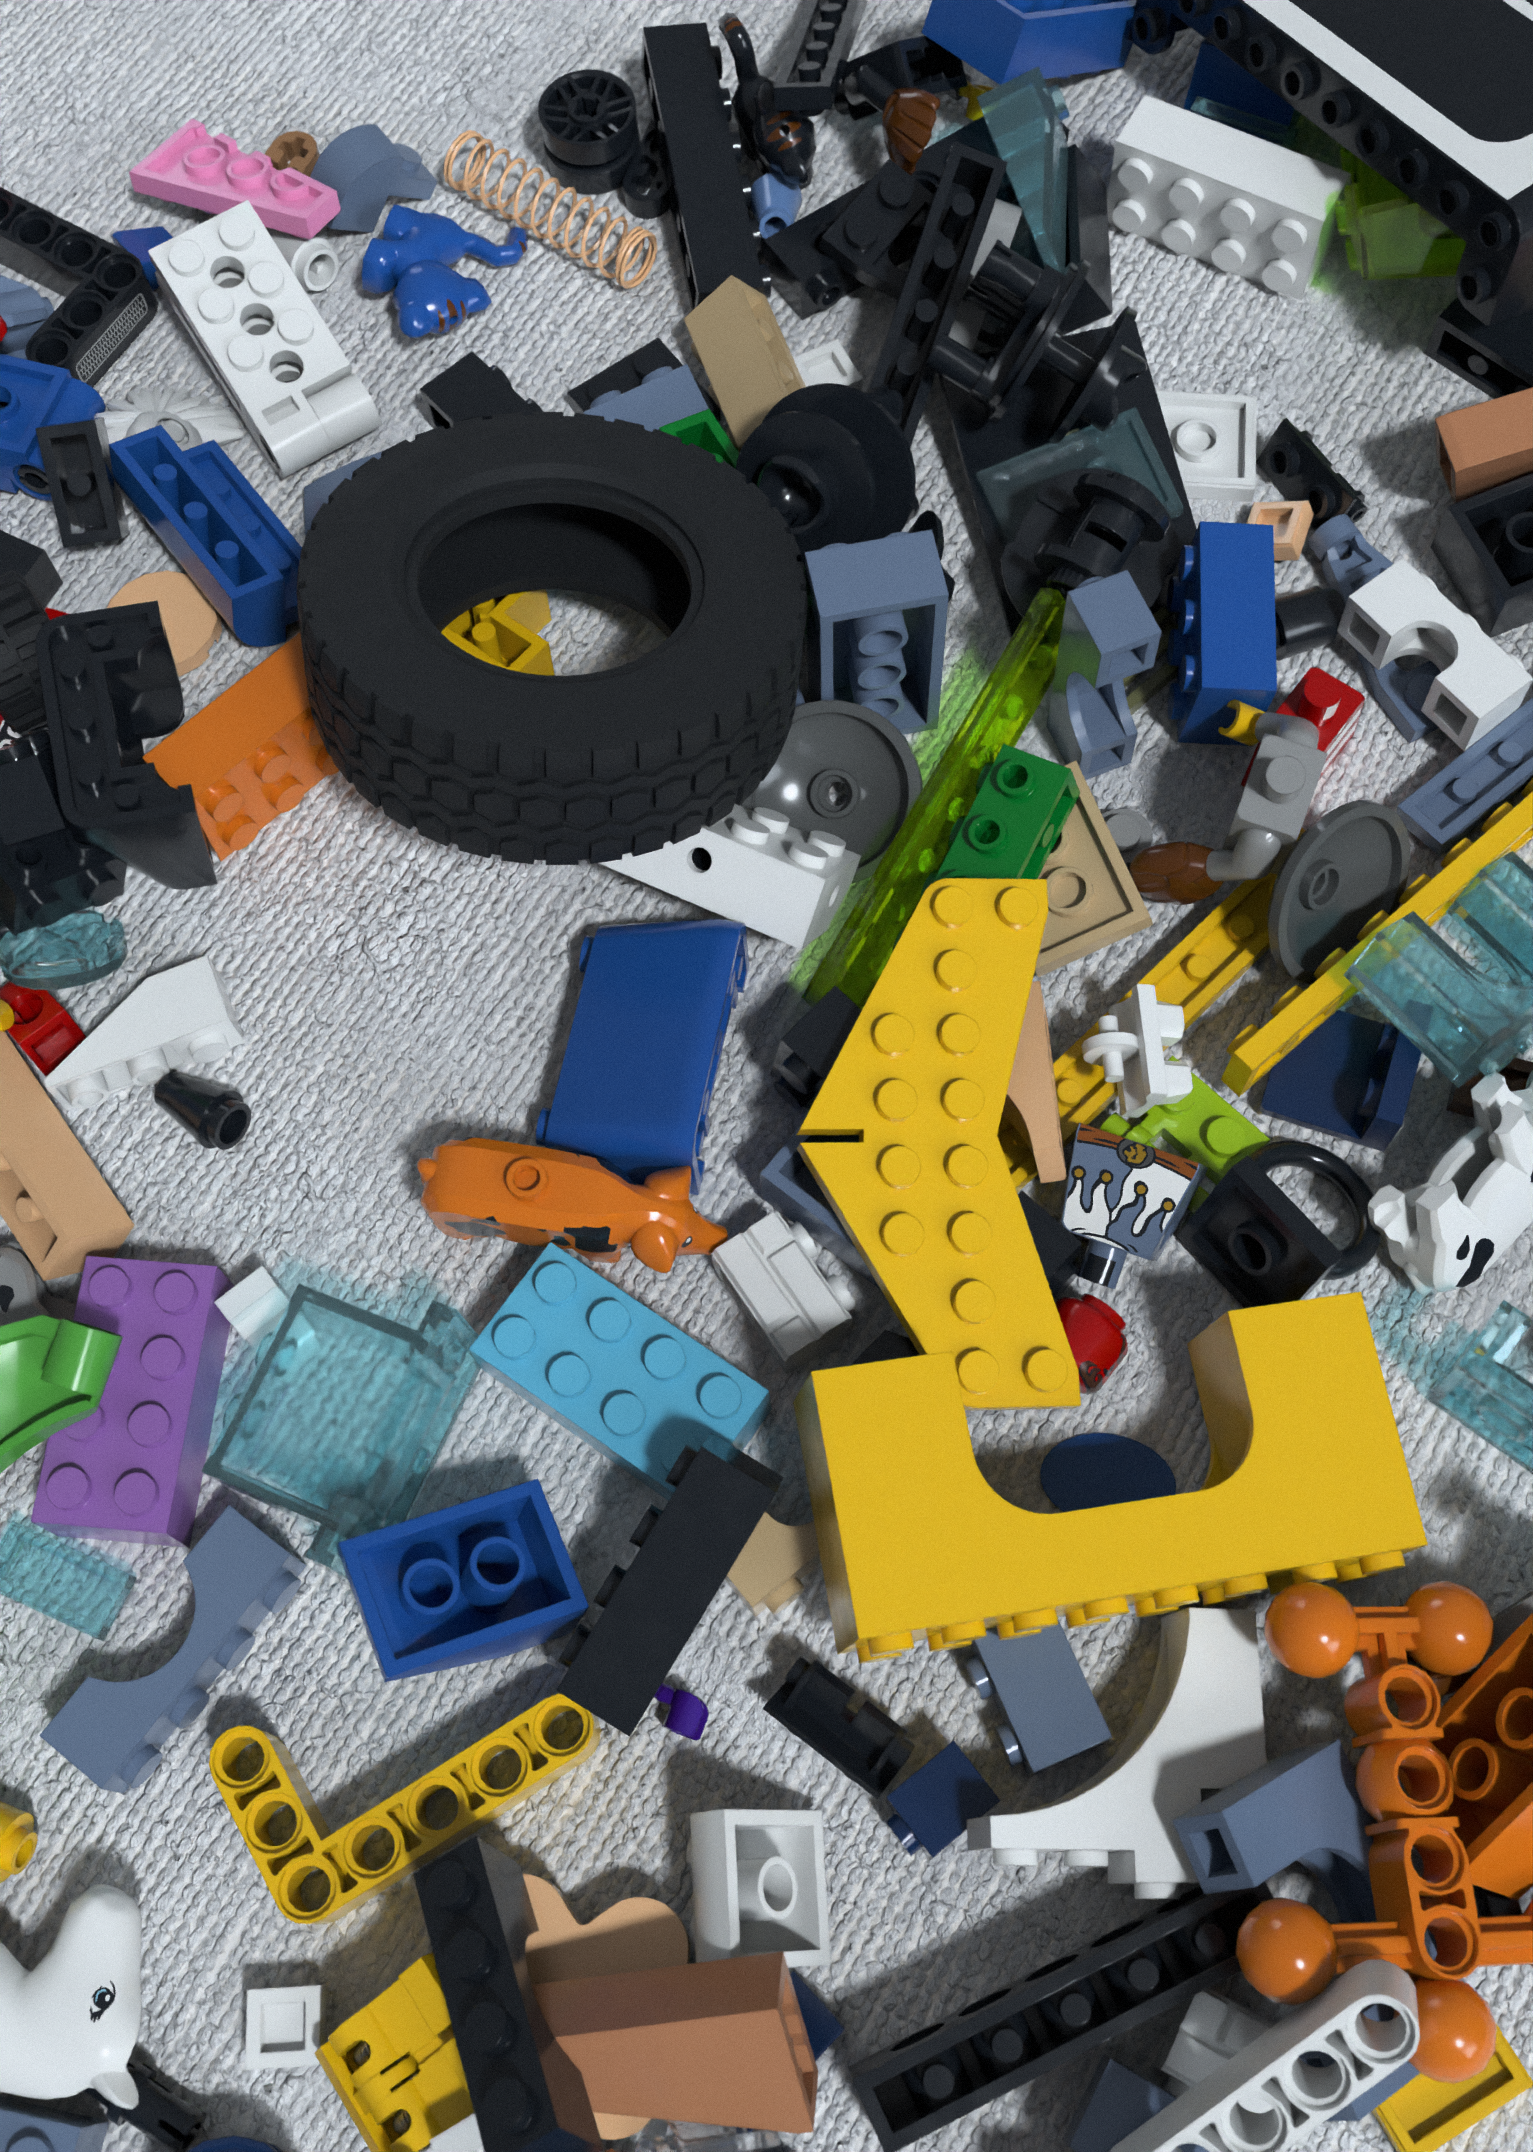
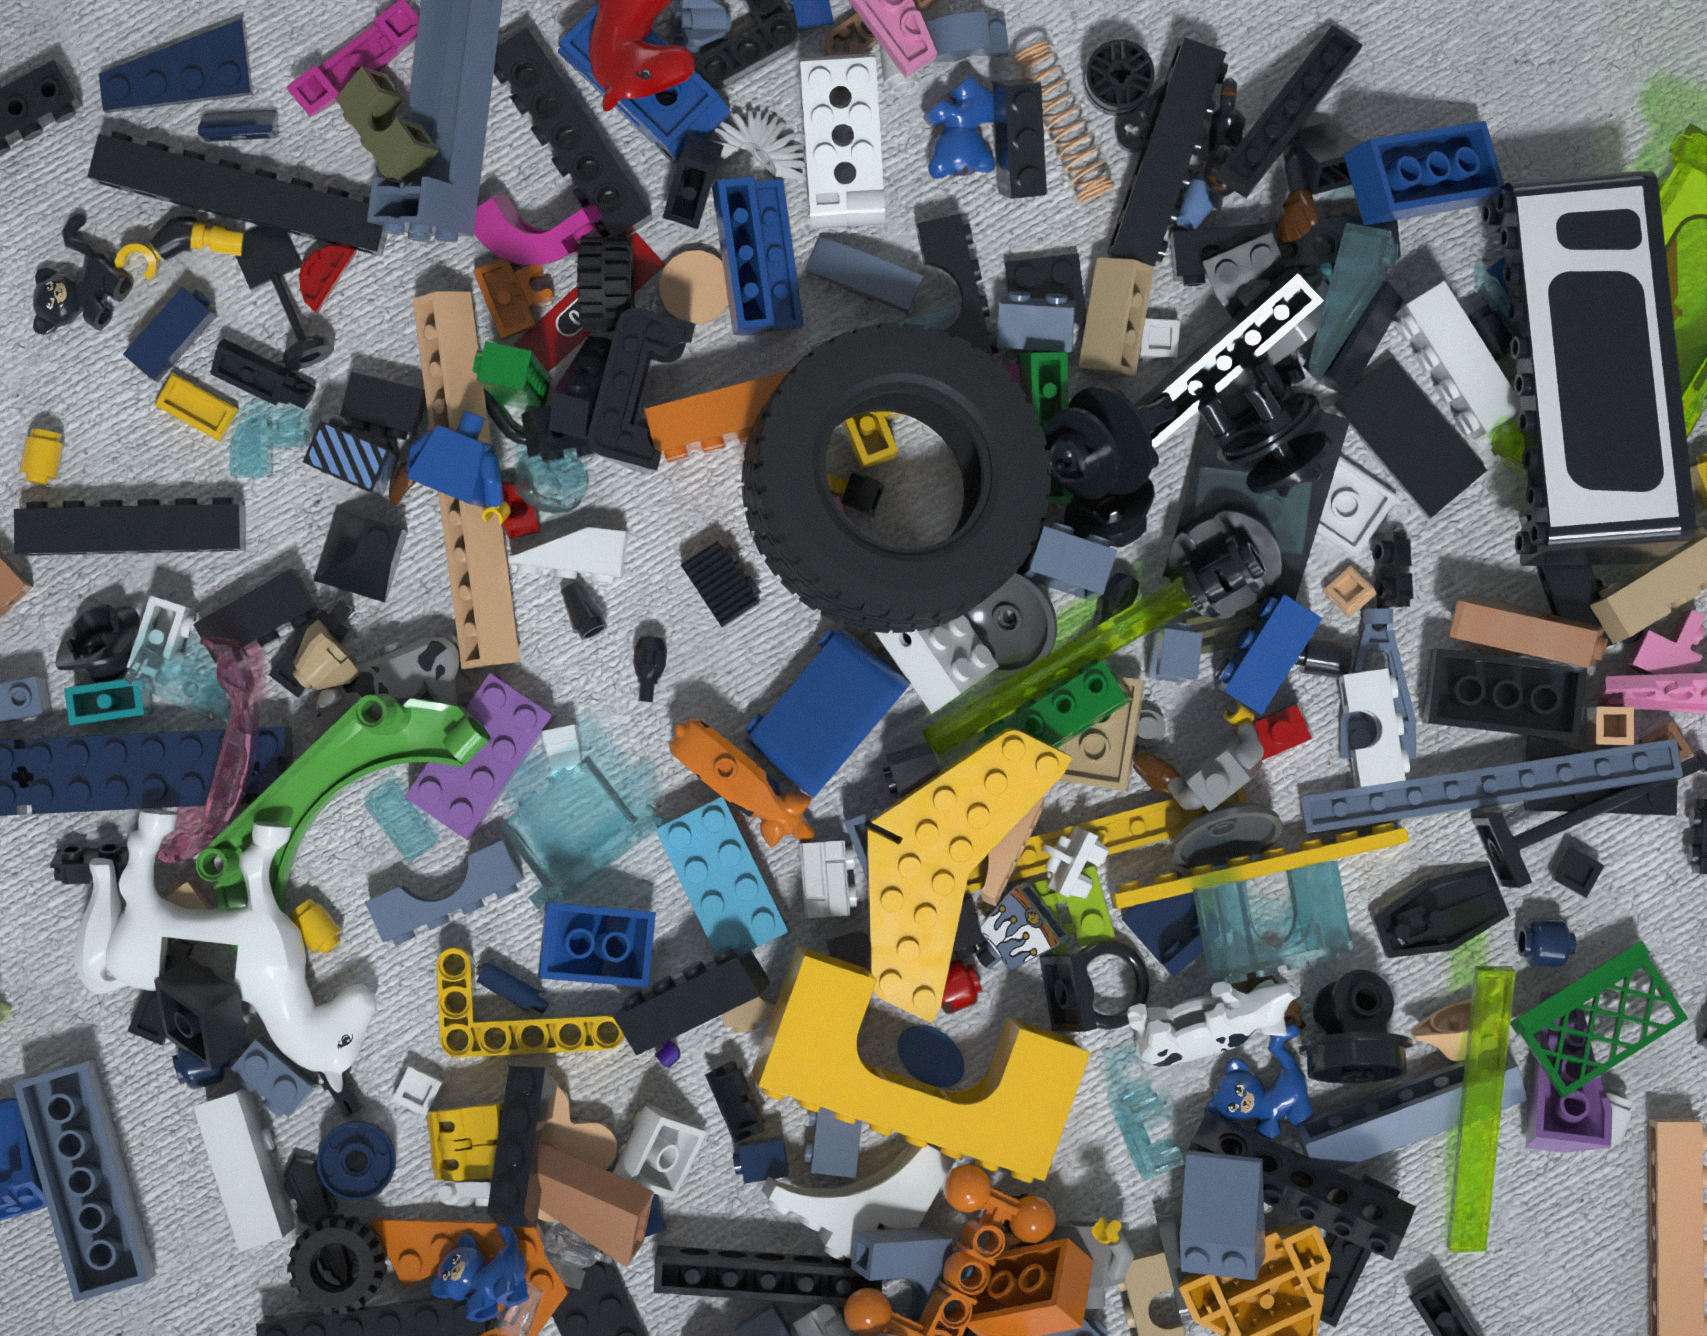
camera: 20 degrees right, 20 degrees up
(342, 1129) = (649, 664): none -> black piece
(366, 1749) = (512, 987): none -> dark blue cylinder
(393, 962) = (721, 584): none -> black brick
(500, 233) = (1019, 138): none -> black brick
(963, 682) = (1118, 596): none -> black piece
(1230, 330) = (1410, 438): none -> black tile

